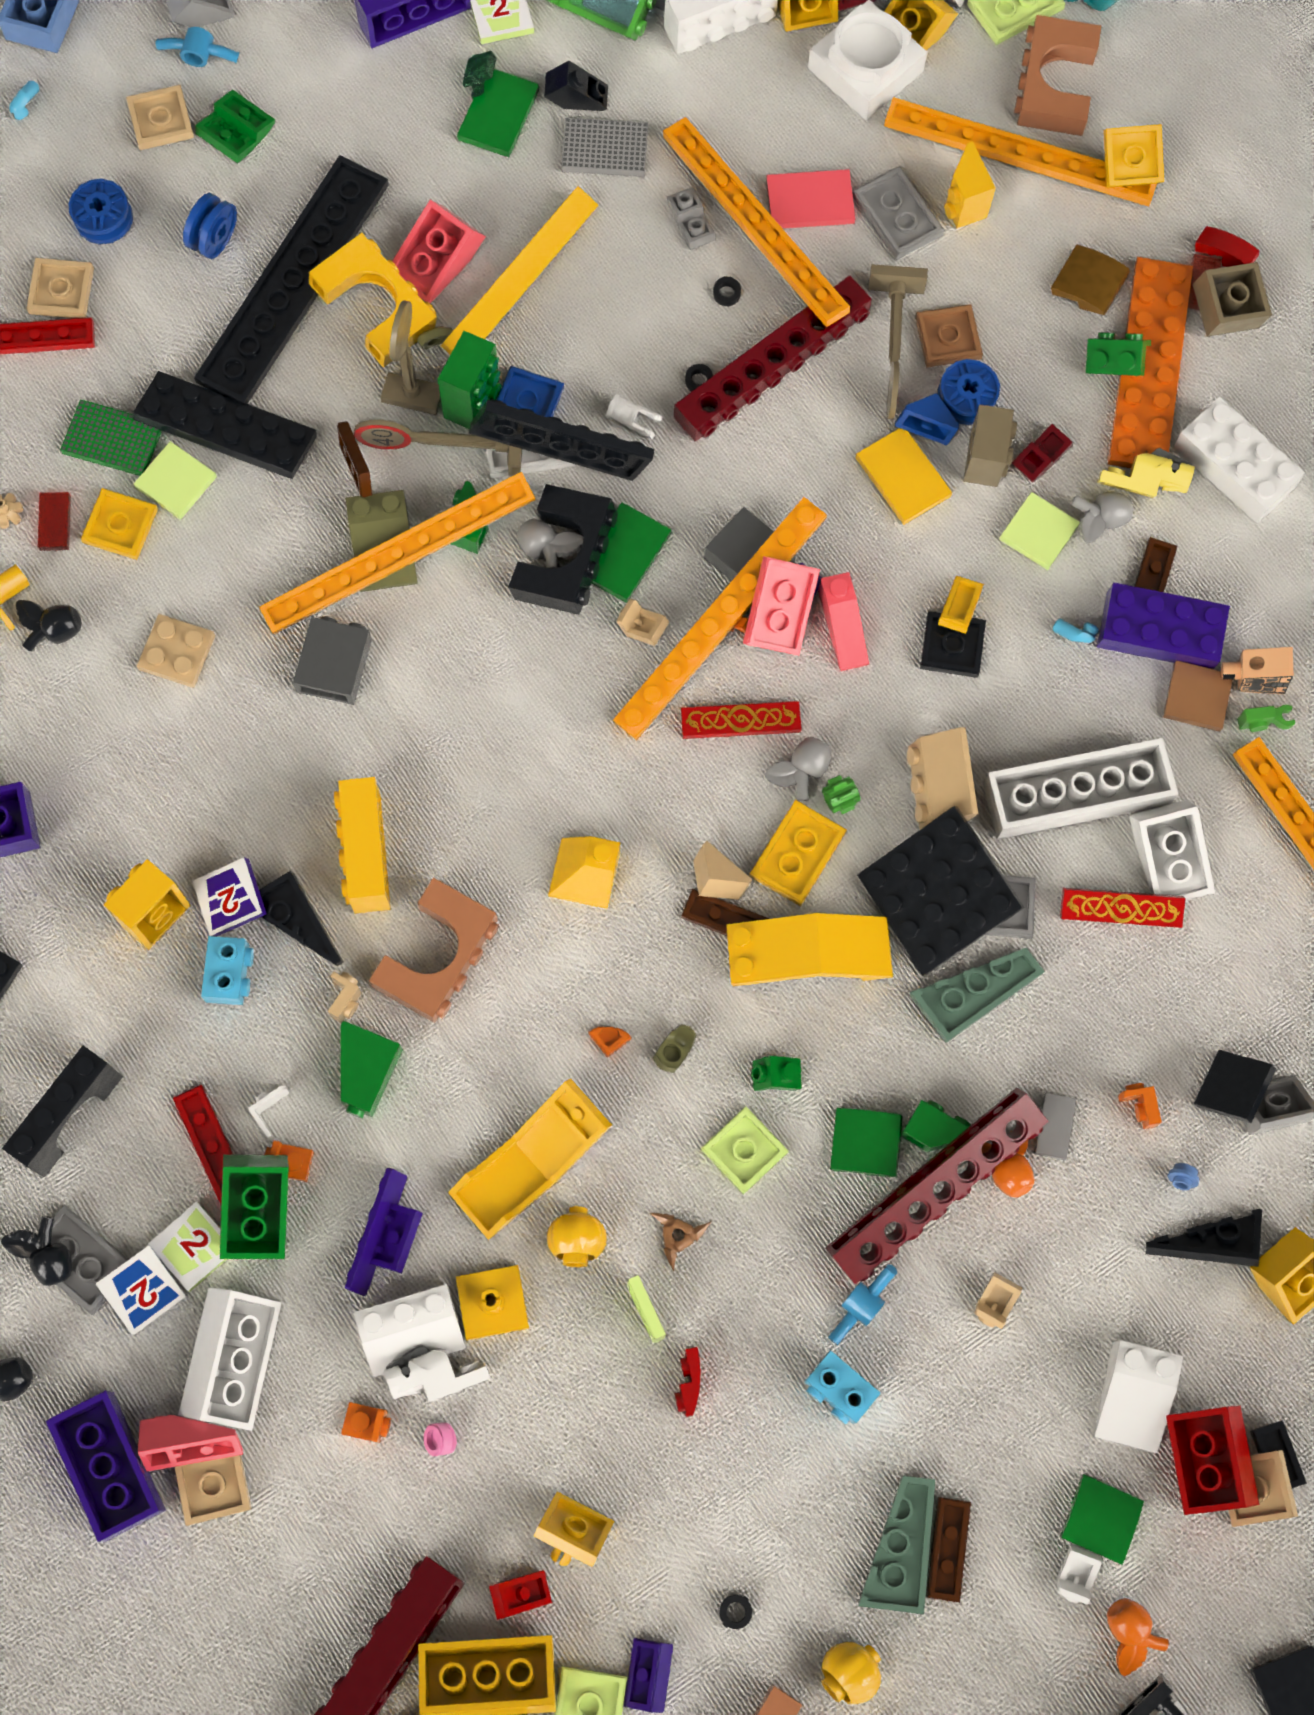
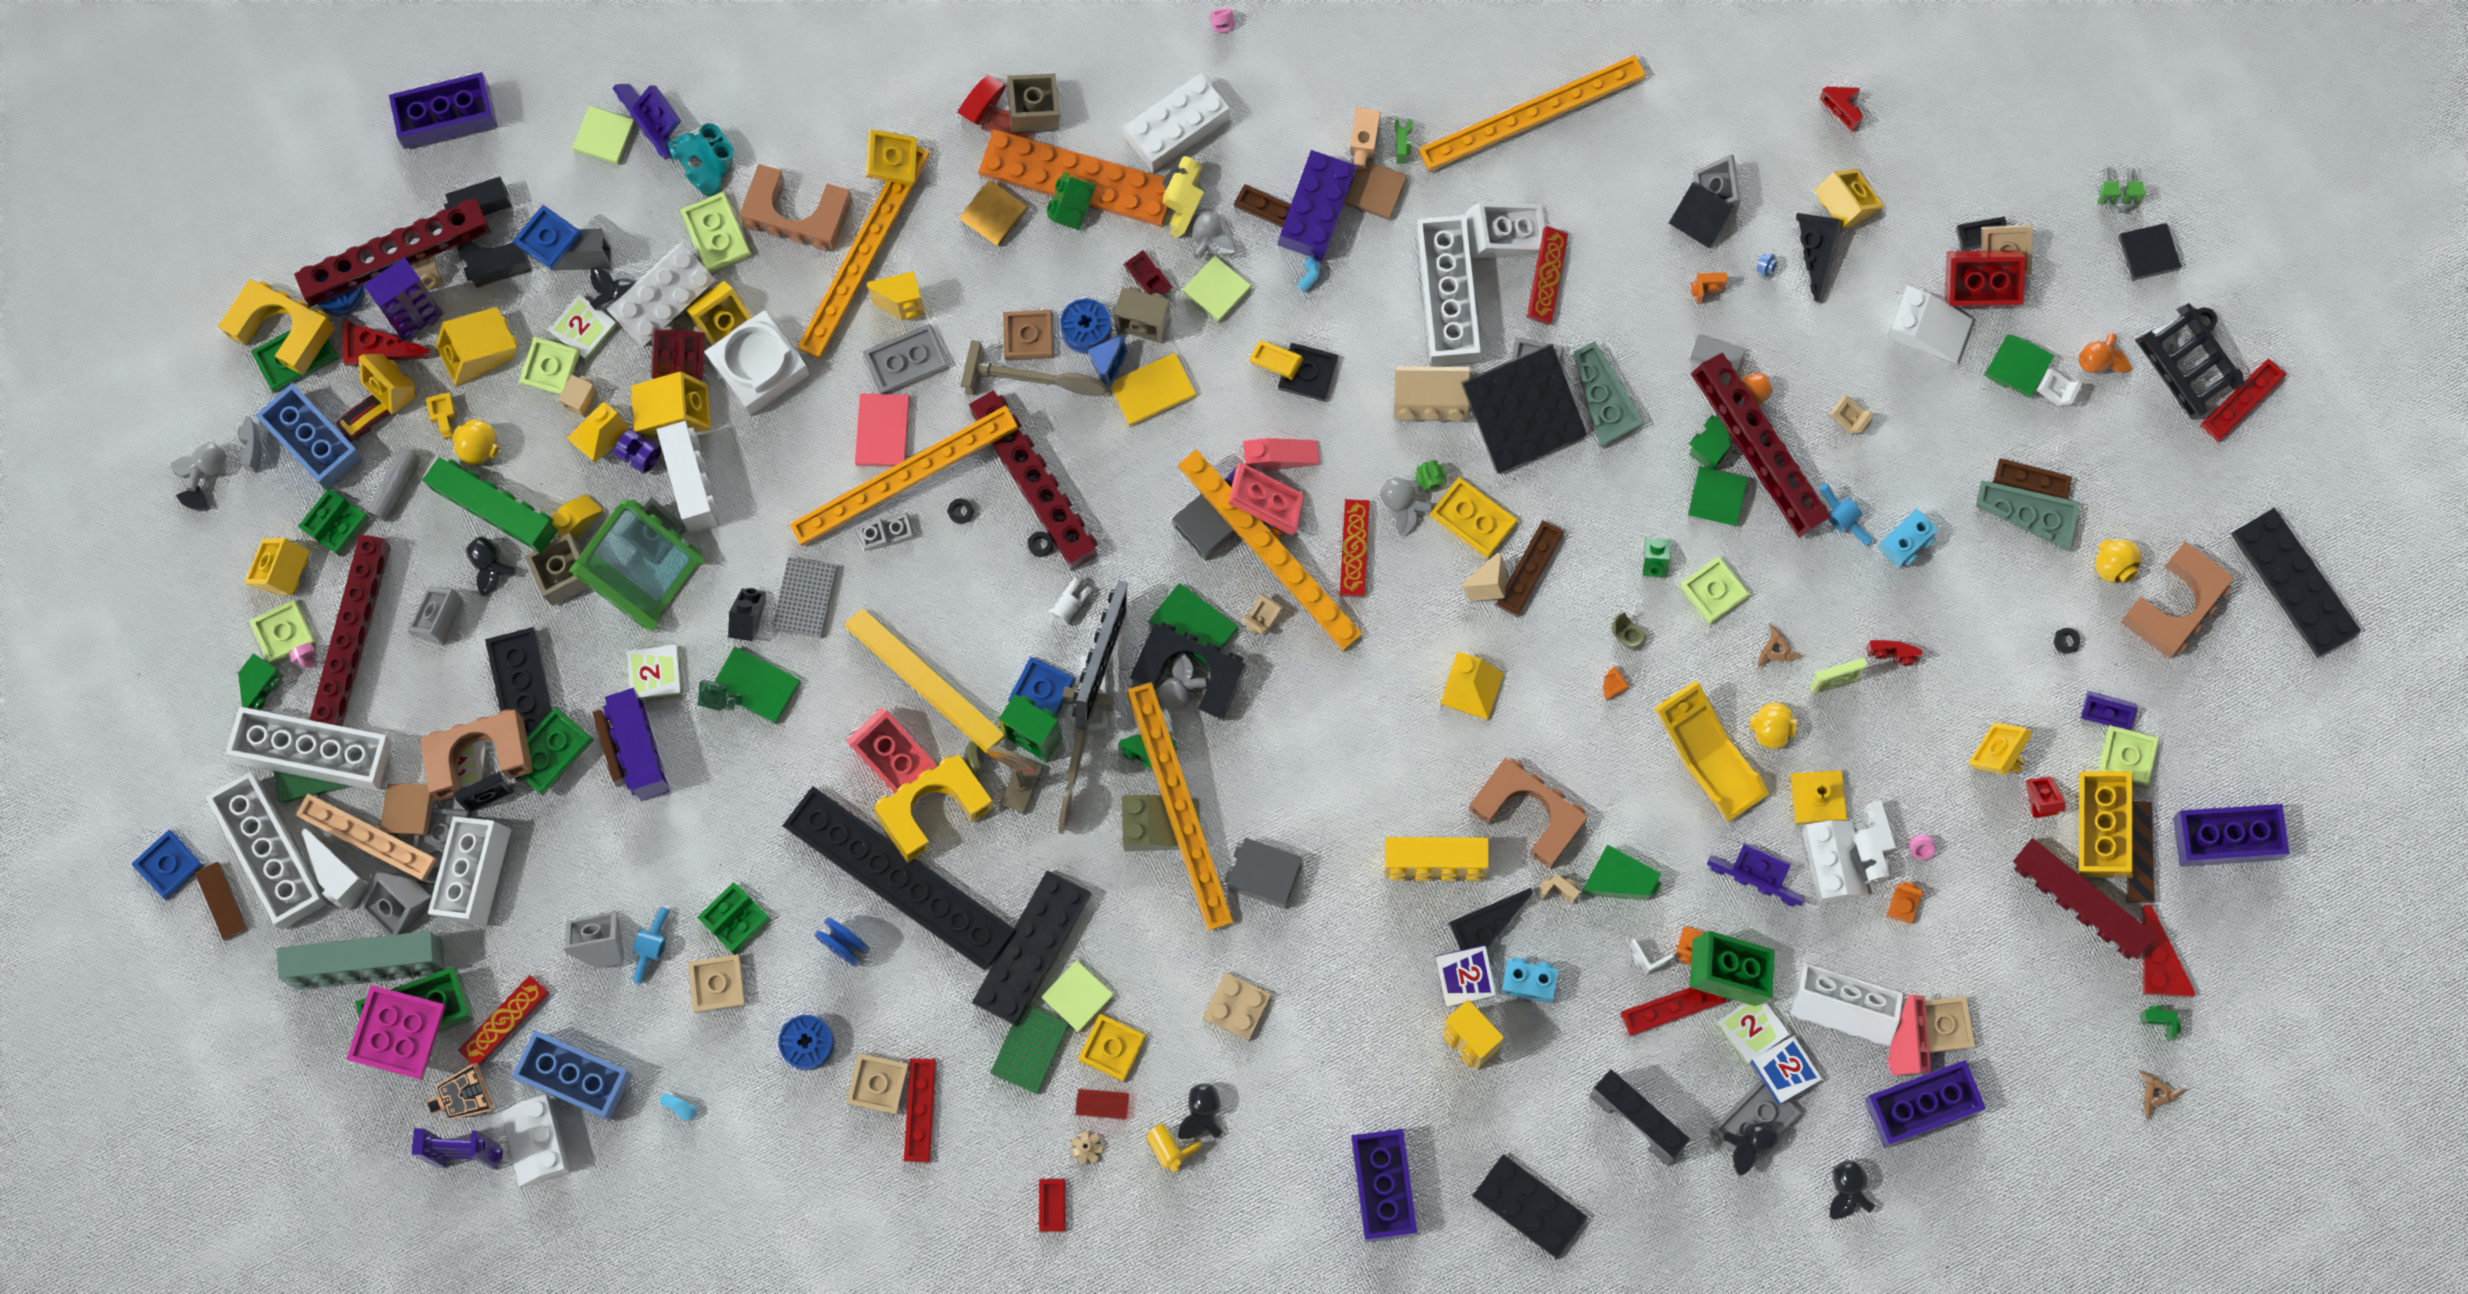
camera: 75 degrees left, 0 degrees up
(354, 459) = (1087, 834): reddish brown tile -> none
(809, 948) = (1559, 518): yellow windscreen -> none

